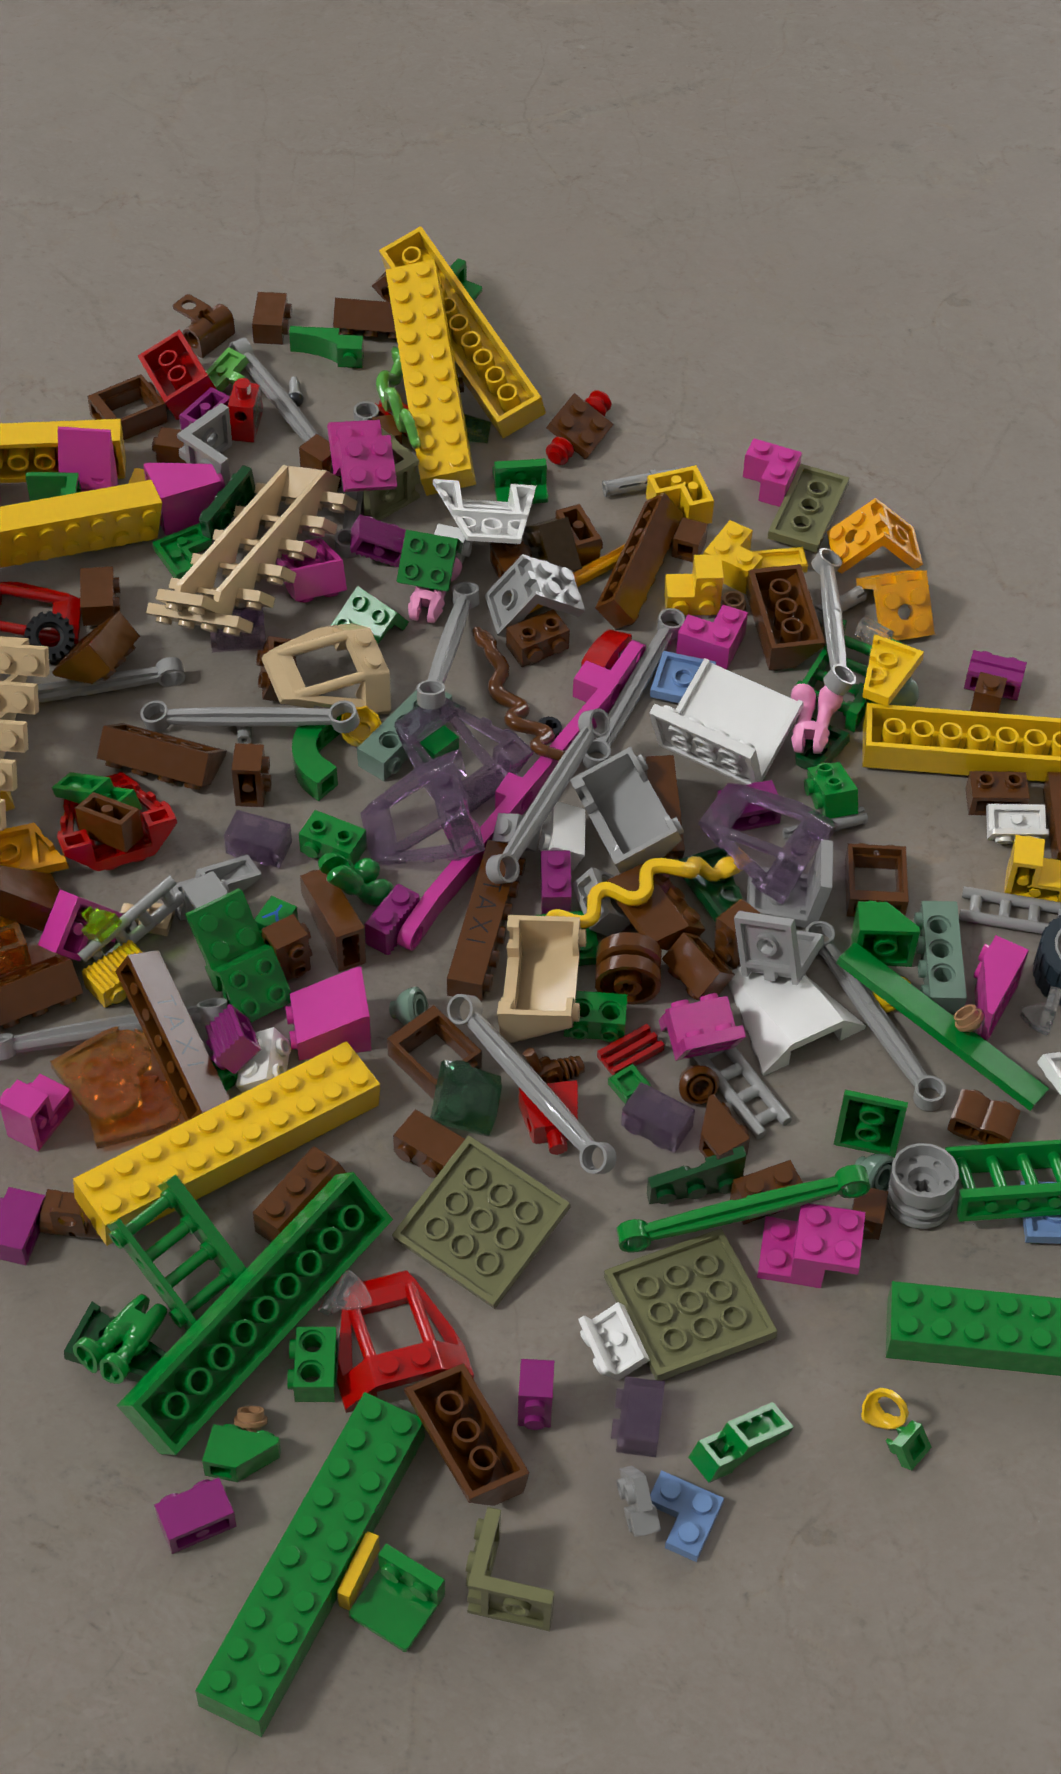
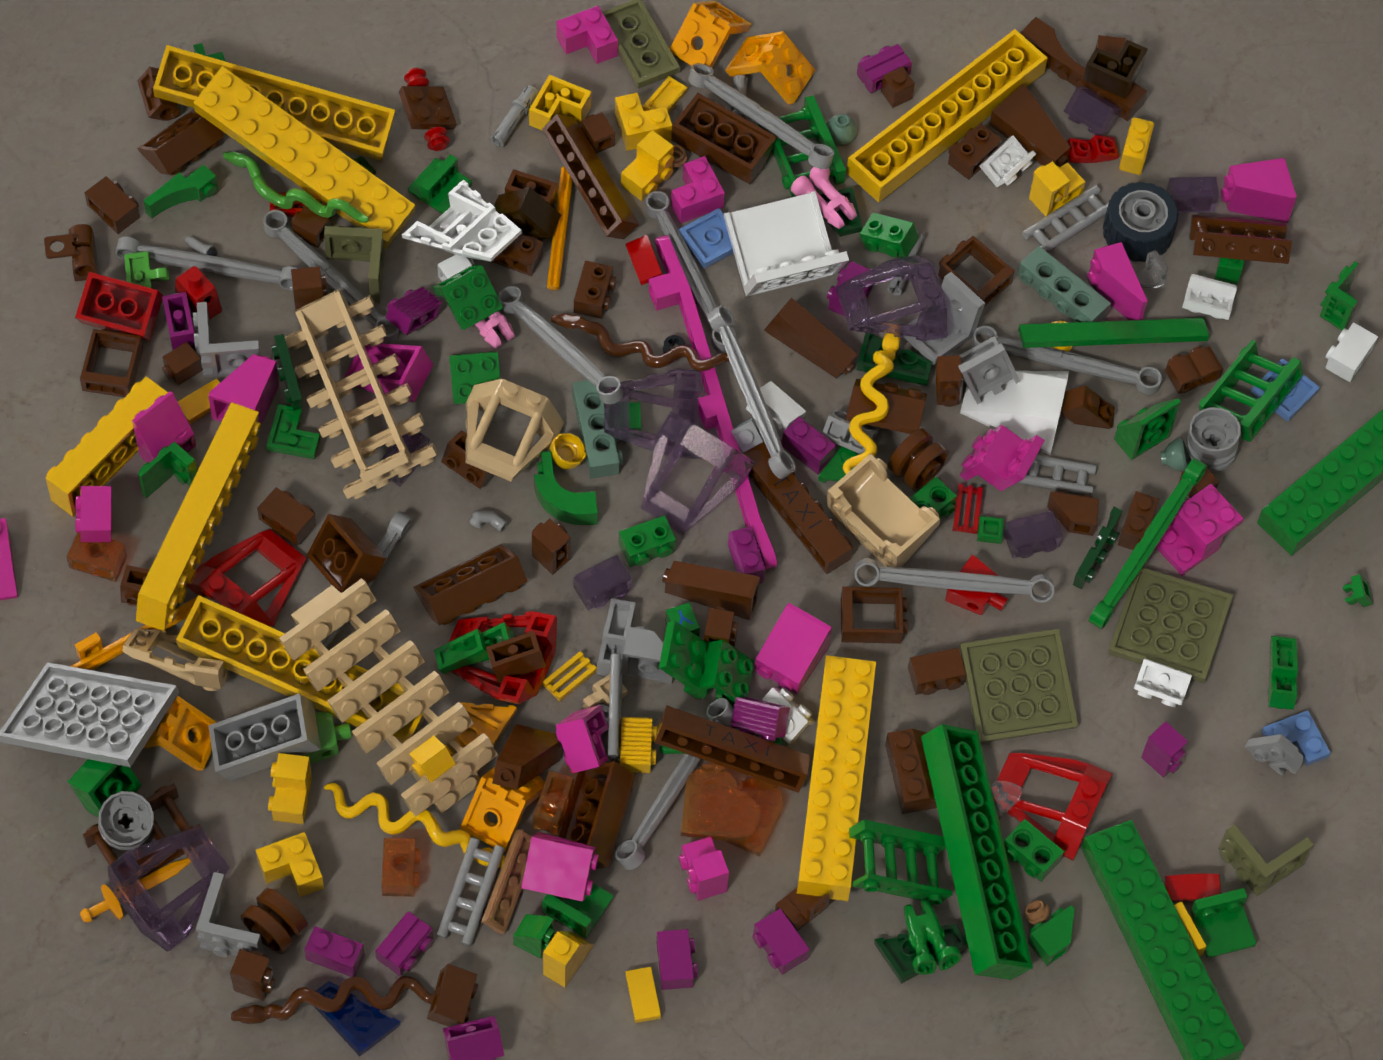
camera: 50 degrees left, 10 degrees up
(58, 623) = (310, 573): black tyre -> none
(100, 924) = (607, 723): clear neon green tile -> none
(138, 877) = (585, 662): none -> yellow tile
(195, 1514) = (1075, 988): magenta brick -> none
(250, 716) = (498, 508): light grey piece -> none
(357, 878) = (702, 555): green piece -> none
(362, 455) = (348, 259): dark pink bracket -> none
(408, 1005) = (823, 602): sand green brick -> none
(412, 1538) = (1192, 886): none -> red slope
(466, 1097) = (926, 623): clear green slope -> none
(469, 1436) = (1161, 804): reddish brown slope -> none
(529, 584) = (562, 254): light grey bracket -> none
(554, 1070) = (948, 557): reddish brown piece -> none
(627, 810) = (808, 362): light grey windscreen -> none
(639, 1417) = (1221, 710): clear purple brick -> none
(697, 966) = (950, 422): reddish brown brick -> none
(697, 1084) = (1030, 493): reddish brown cone -> none
(839, 1063) = (1087, 408): none -> reddish brown slope
(868, 627) = (784, 103): clear tile -> none
(875, 1415) = (1327, 592): yellow piece -> none
(885, 933) = (1023, 305): green slope -> none
(889, 669) = (833, 121): yellow wing -> none
(968, 1018) = (1124, 313): medium nougat plate -> none

